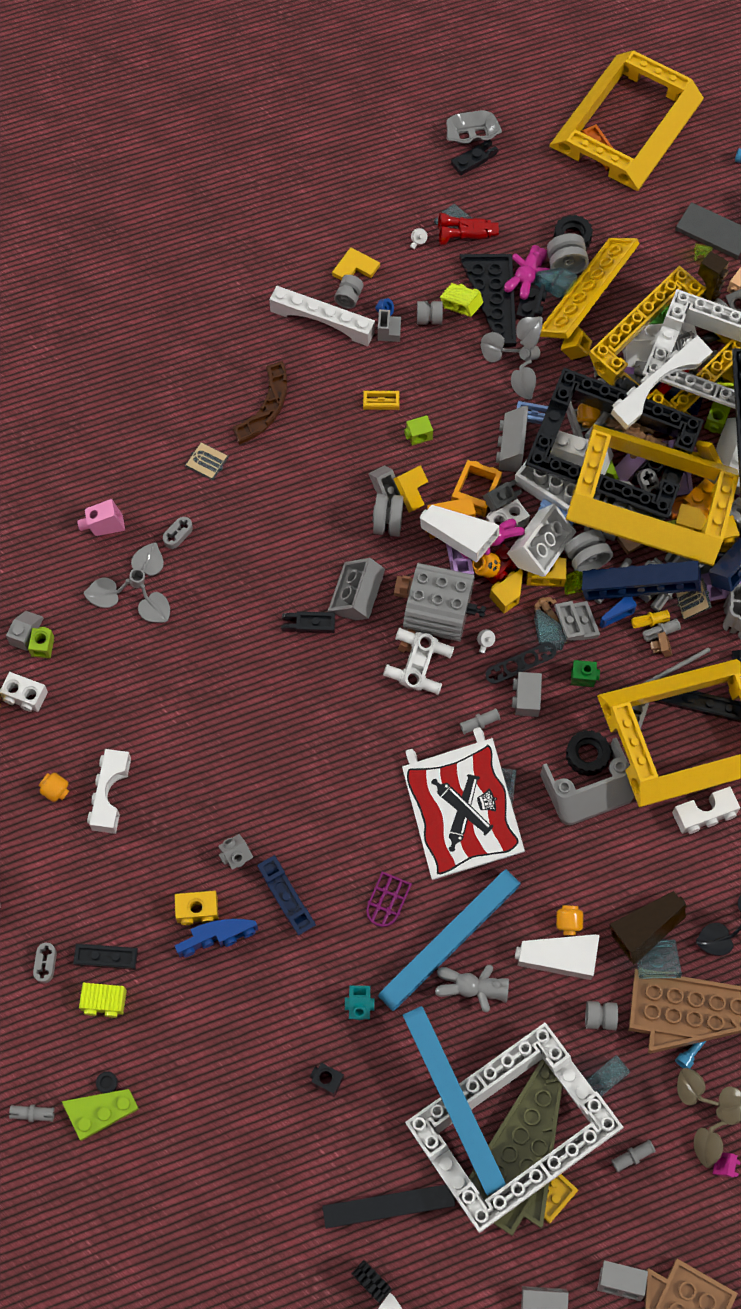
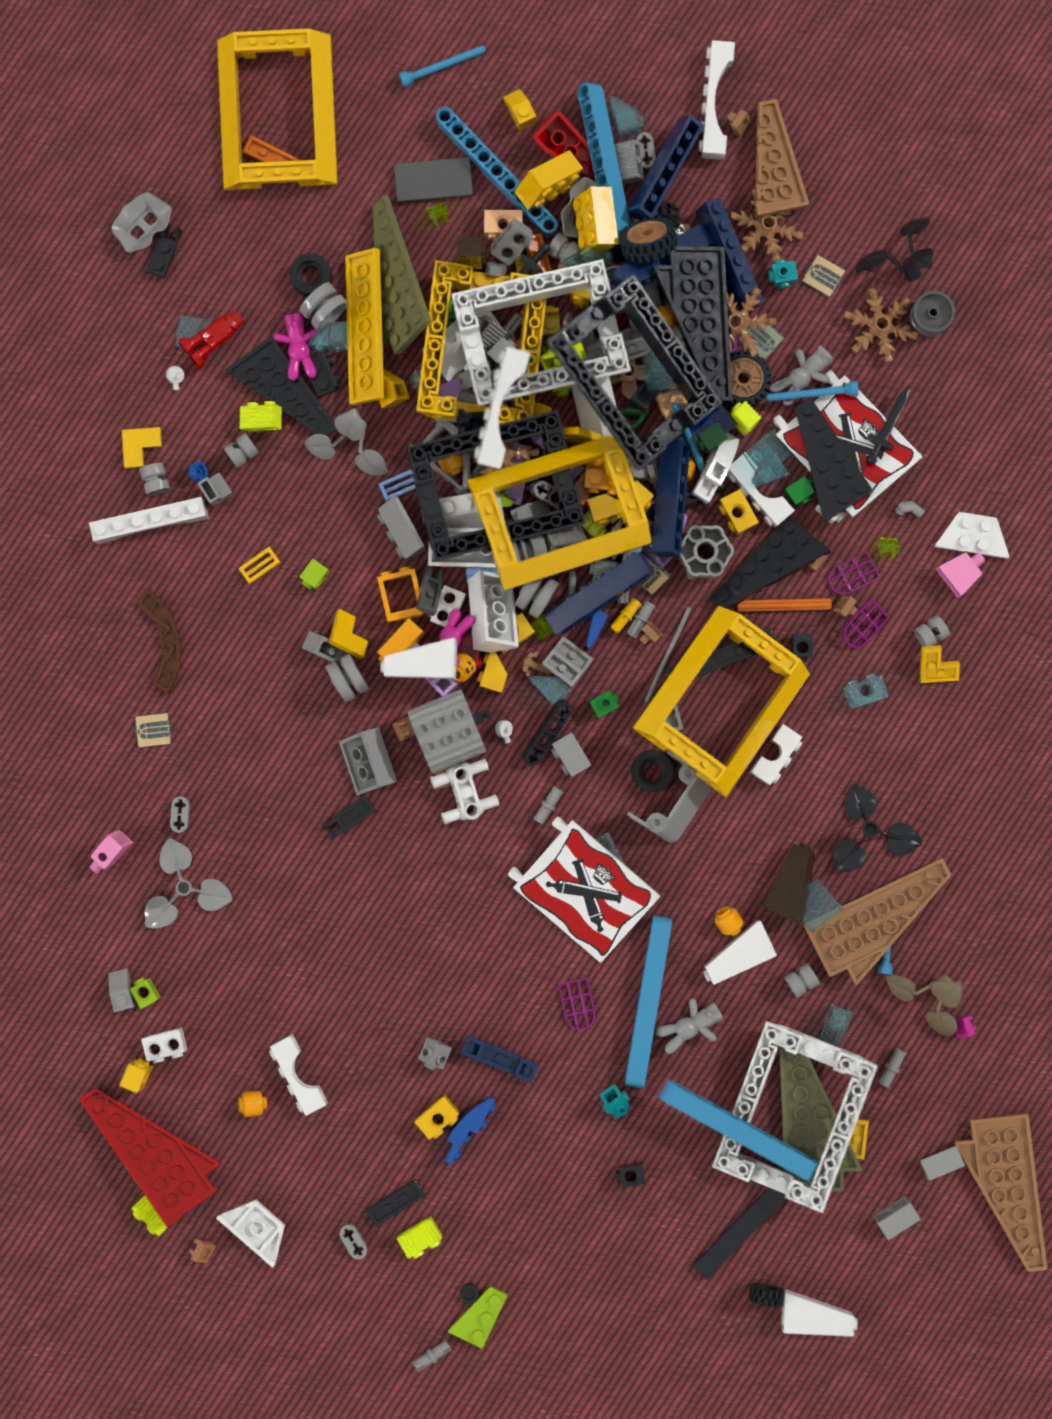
camera: 35 degrees left, 20 degrees up
(636, 276) = (401, 297): none -> olive wing

